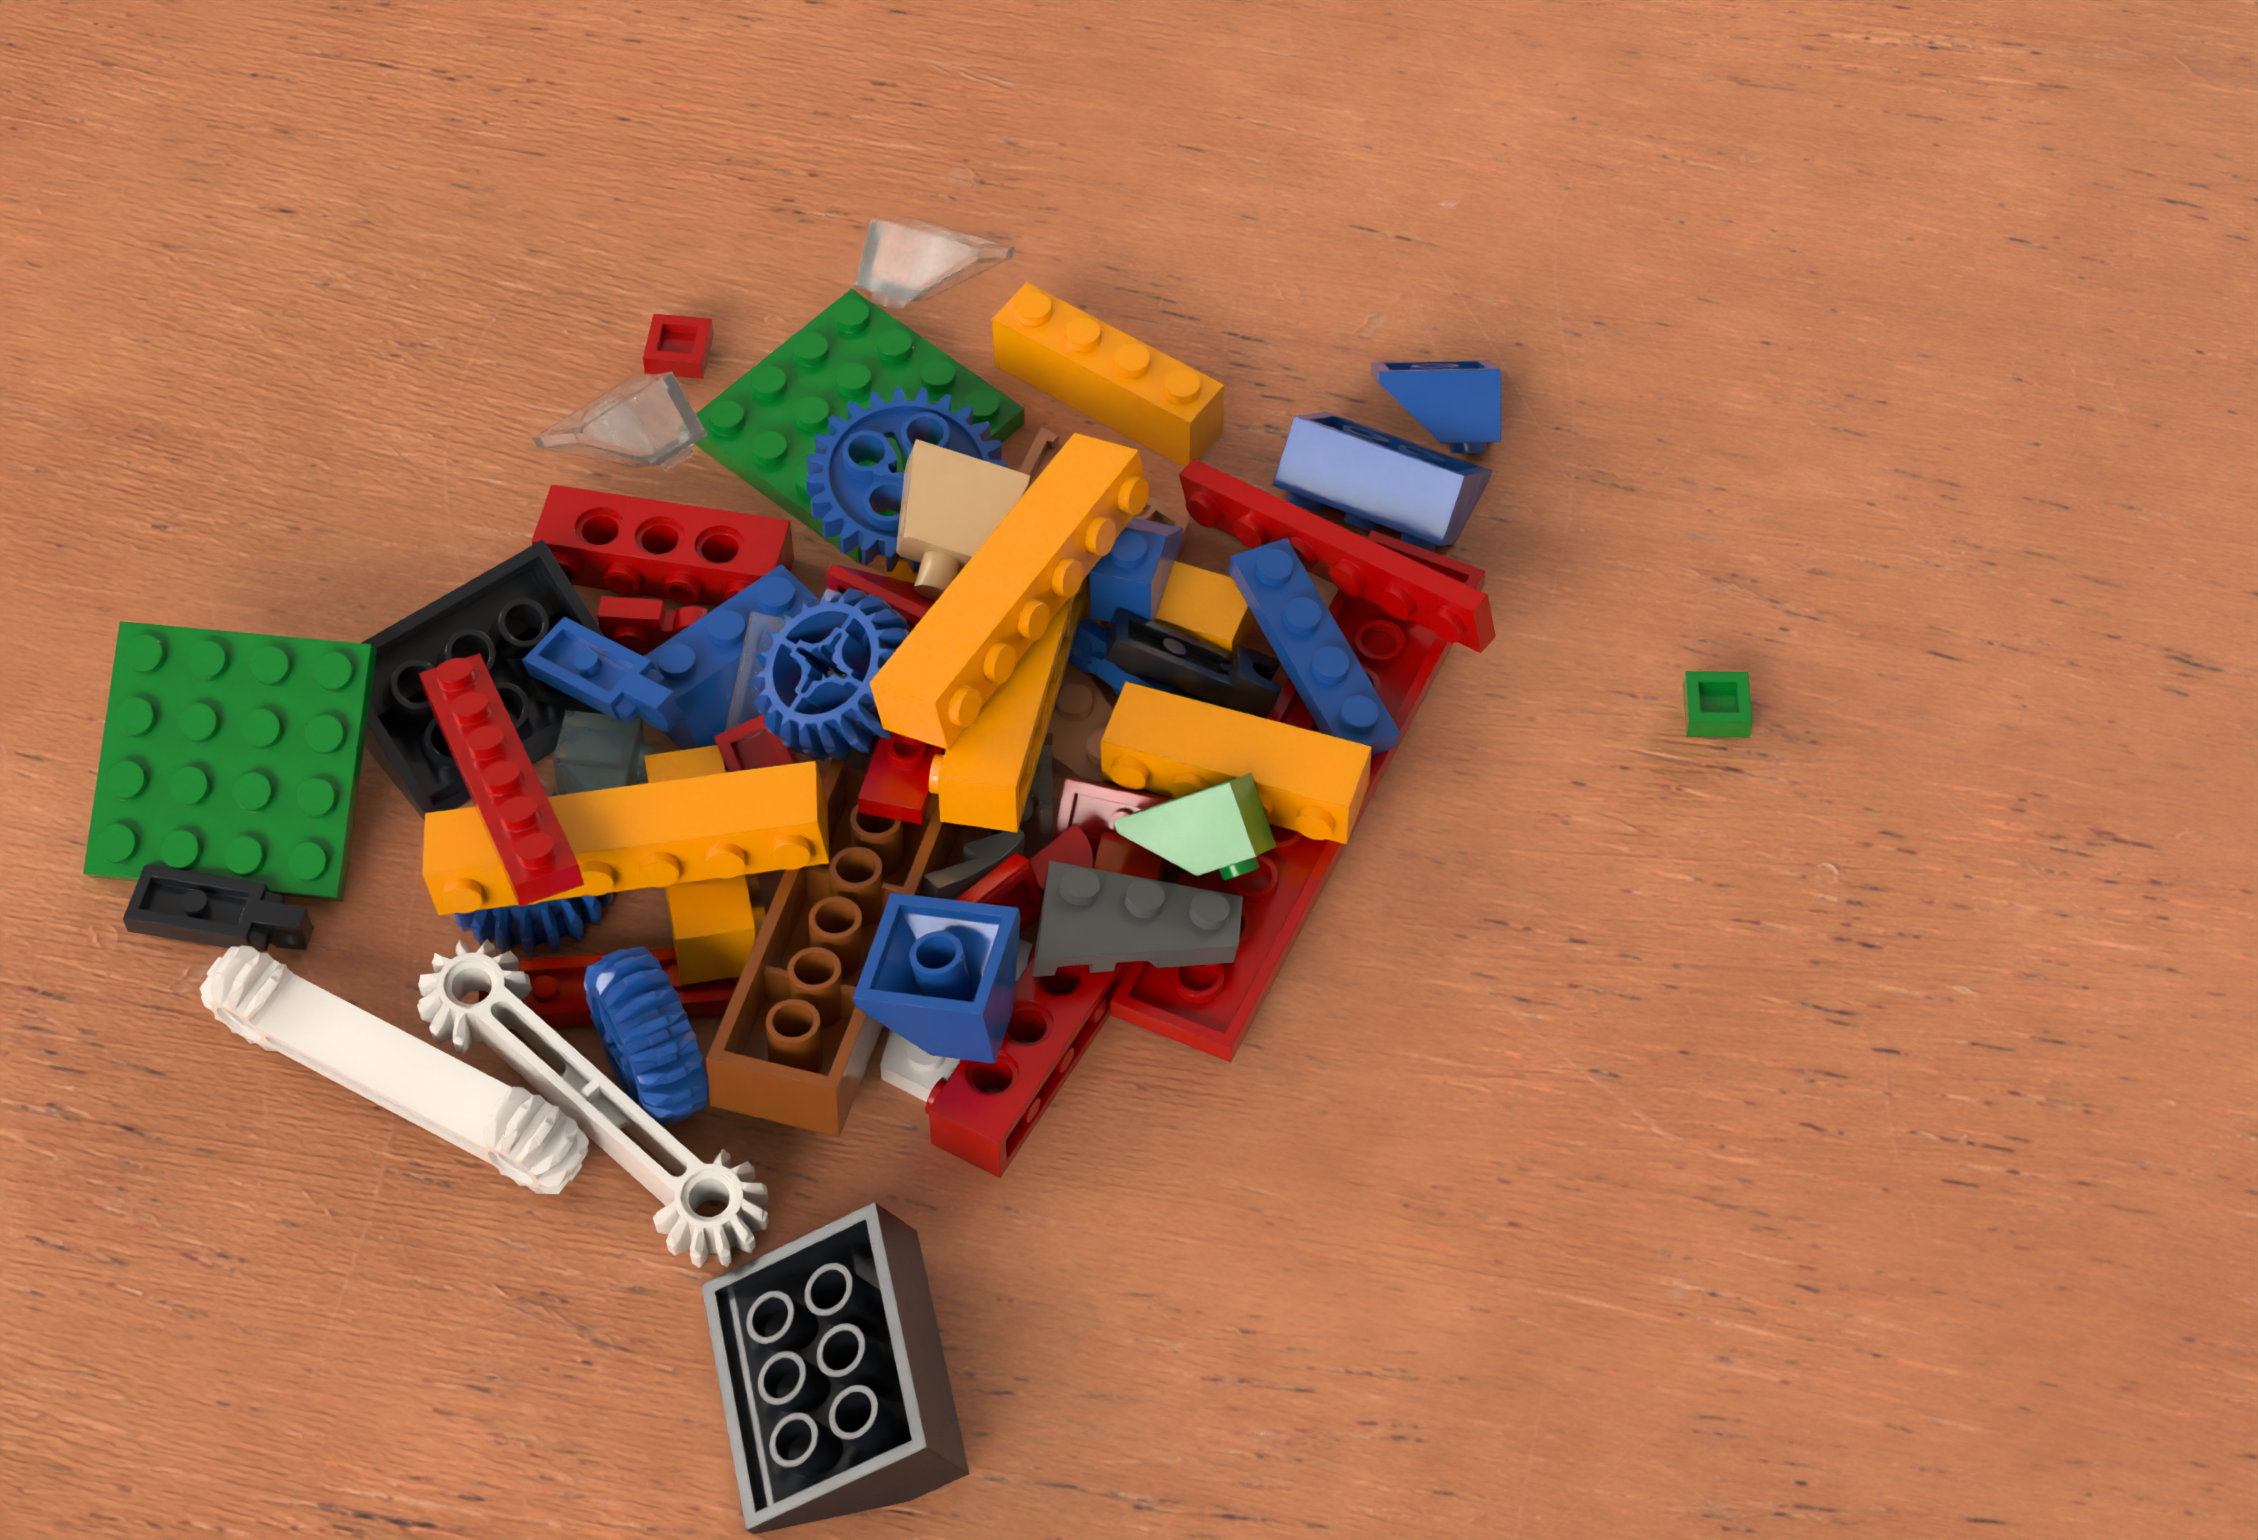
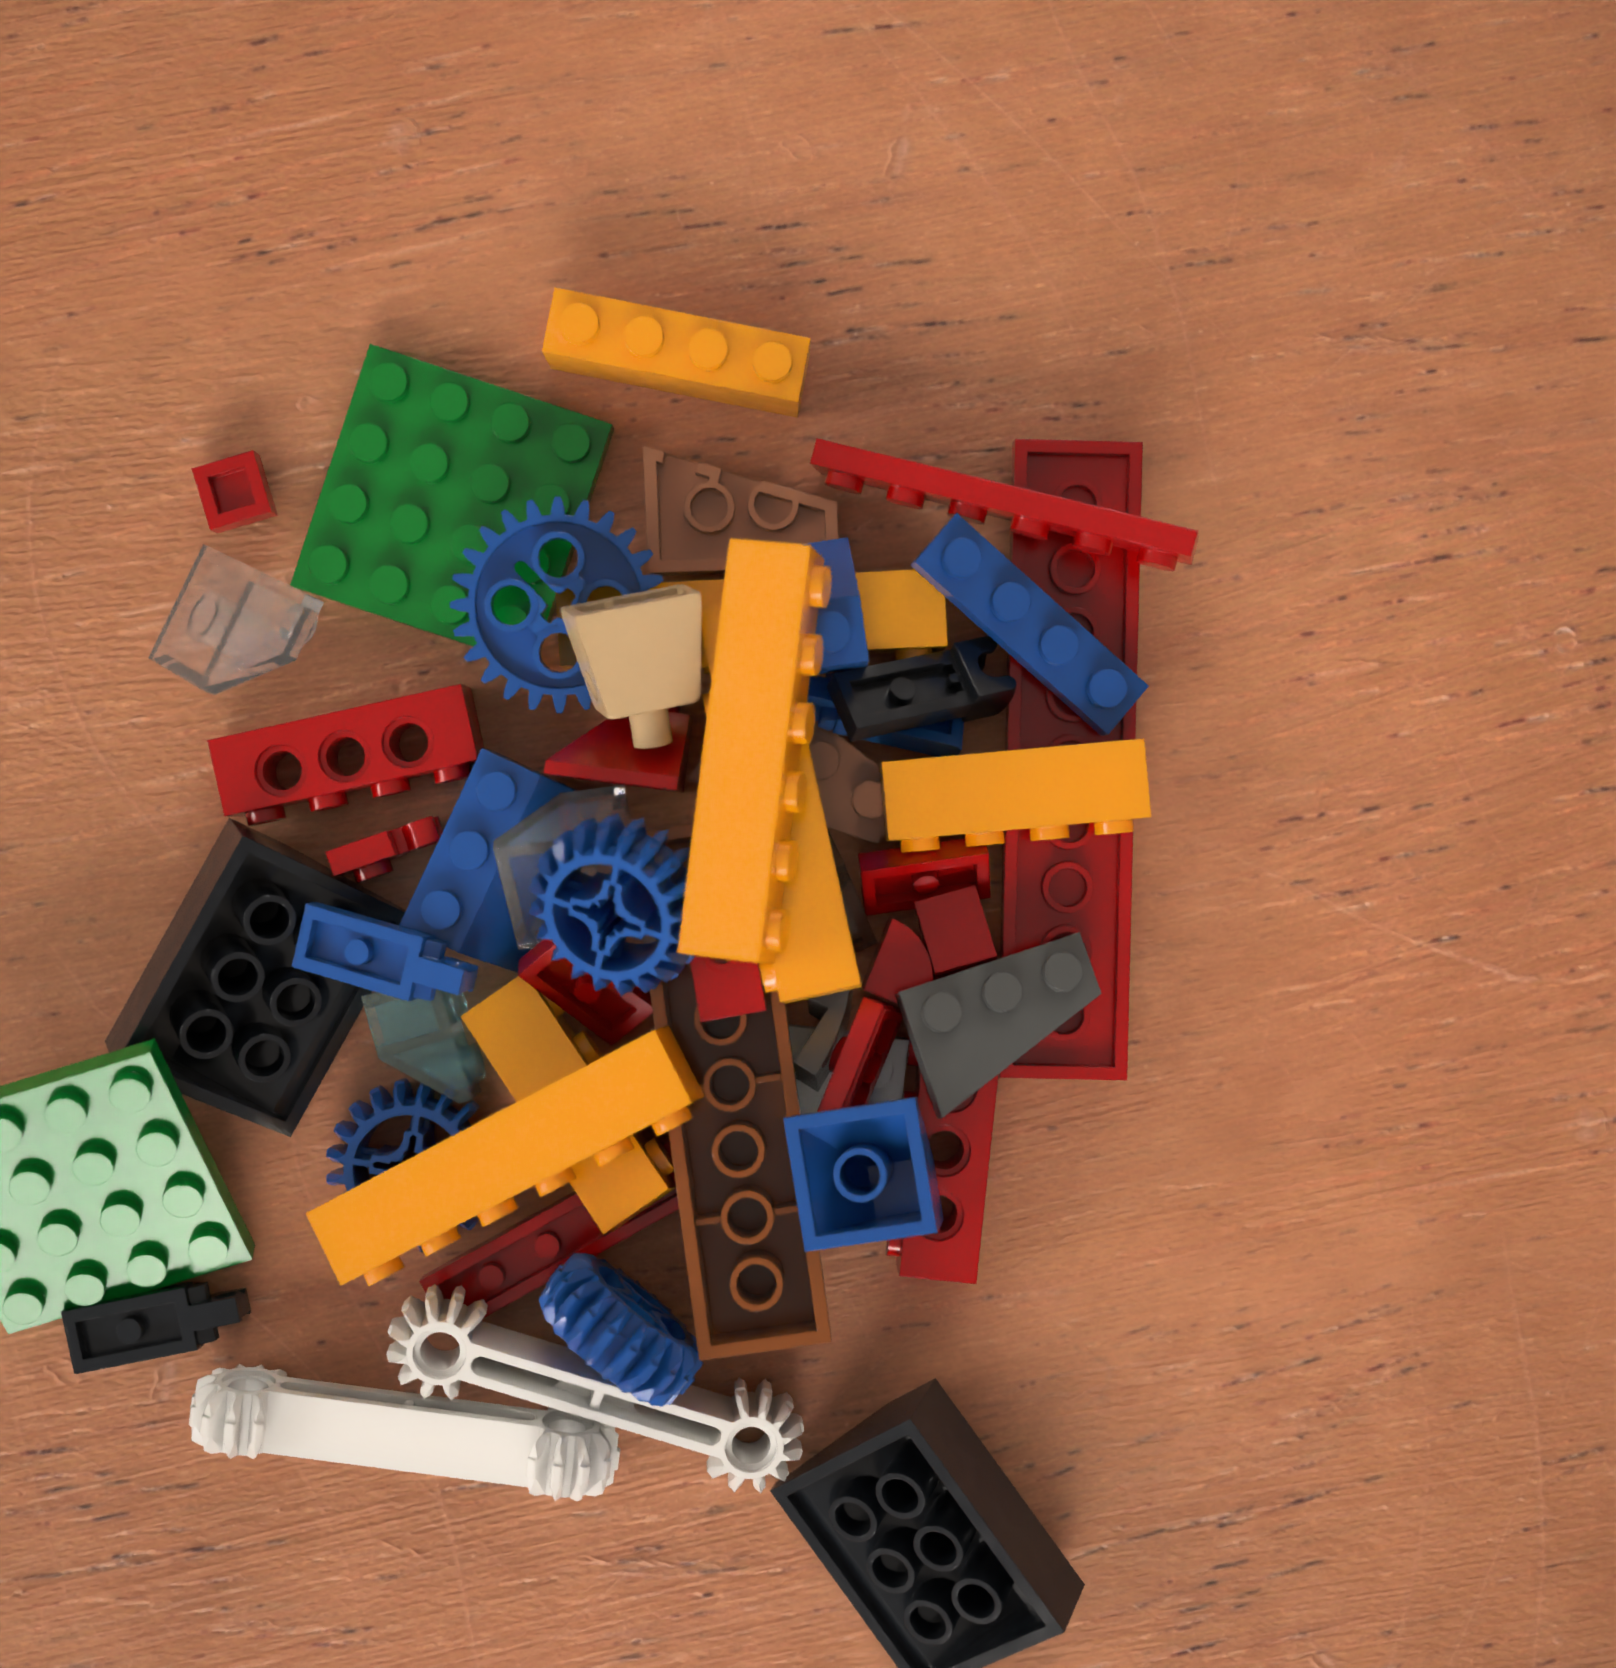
camera: 20 degrees left, 35 degrees up
(501, 780) = (359, 1158): red plate -> none
(919, 259) = (429, 275): clear slope -> none
(1205, 829) = (1017, 889): slope -> none
(1379, 479) = (998, 364): slope -> none
(1448, 398) = (1017, 234): blue slope -> none
(1717, 704) = (1412, 501): green plate -> none

